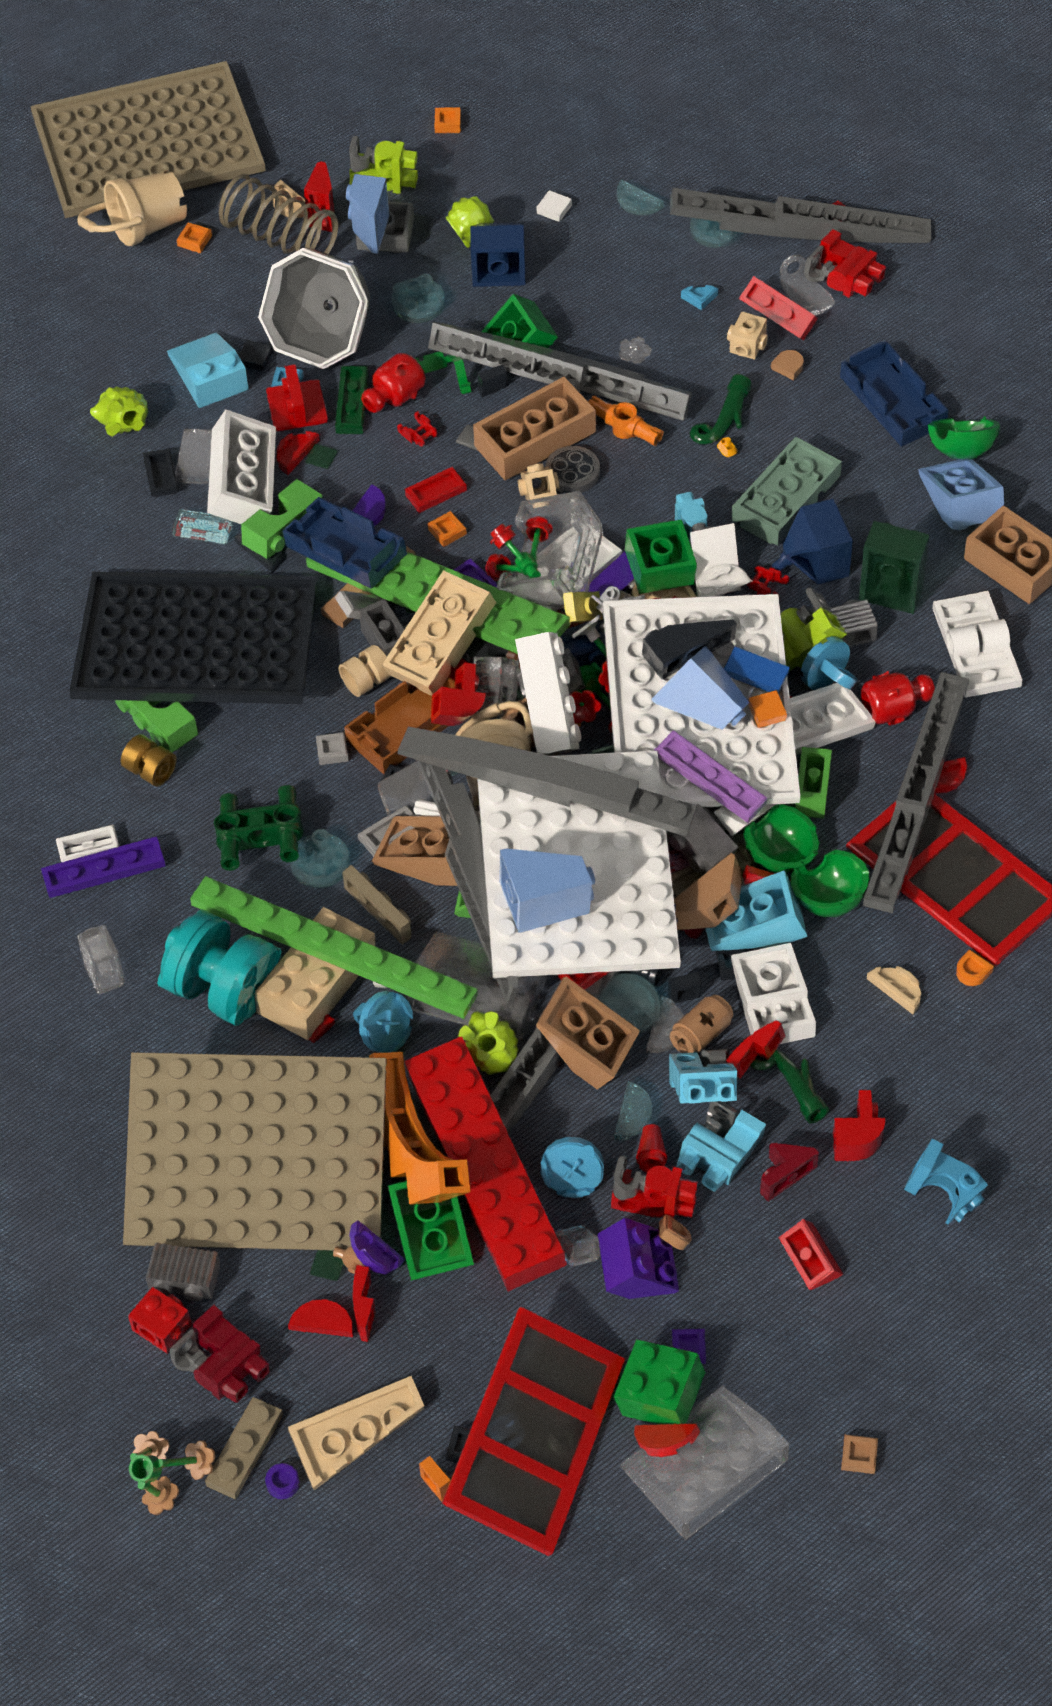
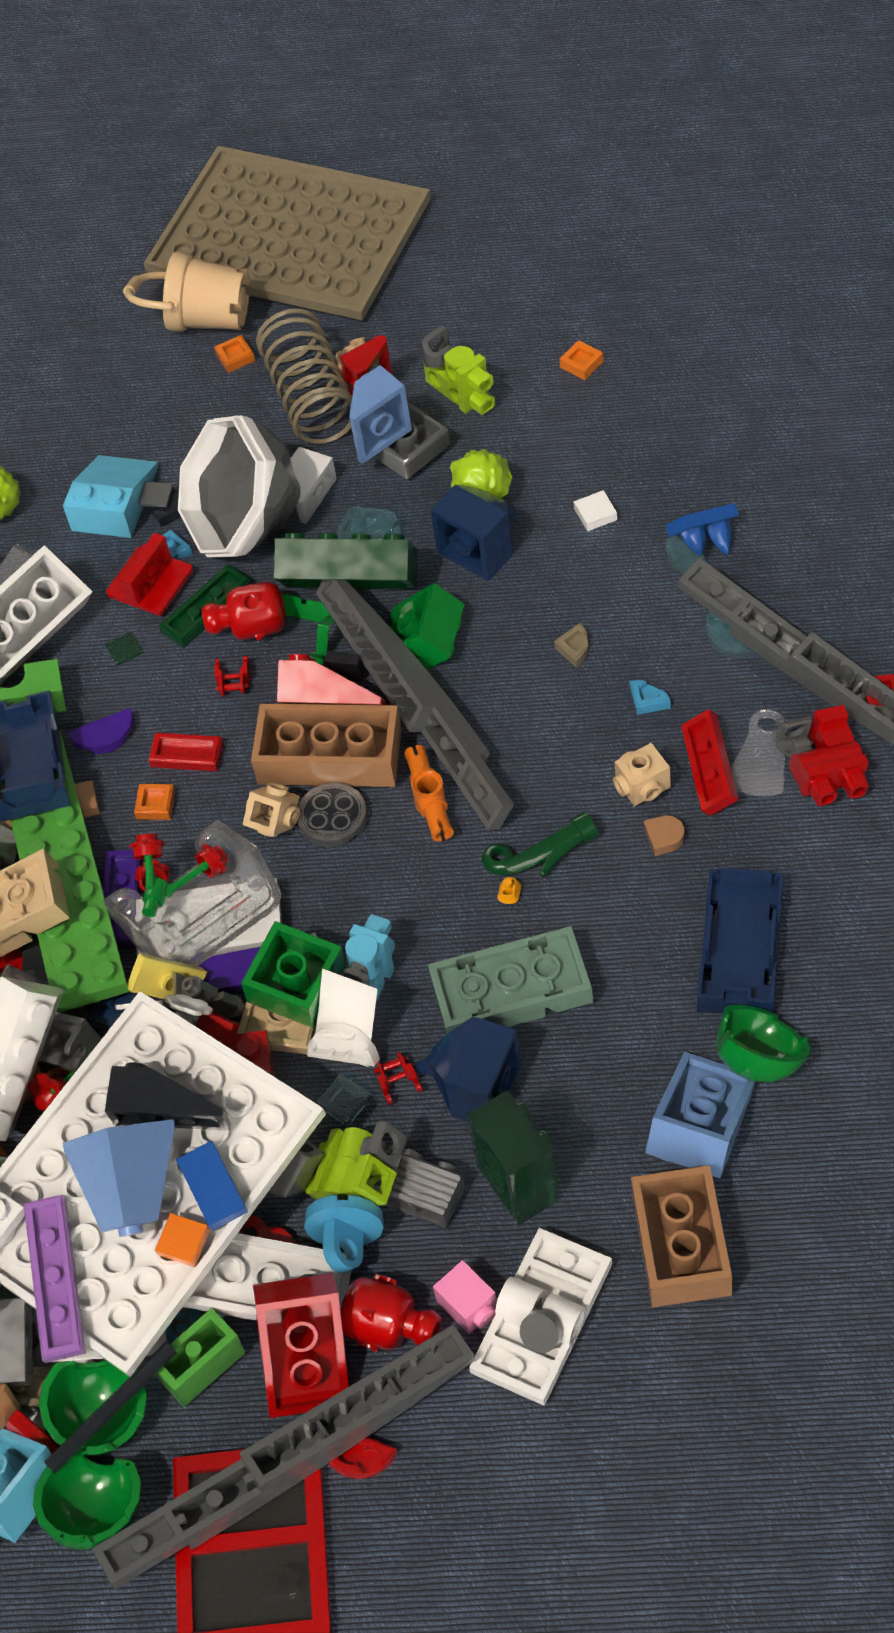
camera: 45 degrees right, 0 degrees up
(246, 349) = (155, 494): none -> dark grey piece
(294, 448) = (103, 626): red tile -> none
(451, 305) = (358, 560): none -> piece
(498, 391) = (308, 682): none -> slope
(623, 291) = (573, 645): none -> dark tan tile
(634, 350) = (523, 719): clear plant -> none
(642, 176) = (714, 520): none -> blue tile
(800, 829) = (110, 1407): none -> black bar
(868, 733) = (300, 1343): none -> red slope
(929, 659) = (466, 1297): none -> bright pink brick
(993, 642) = (541, 1330): none -> dark grey tile

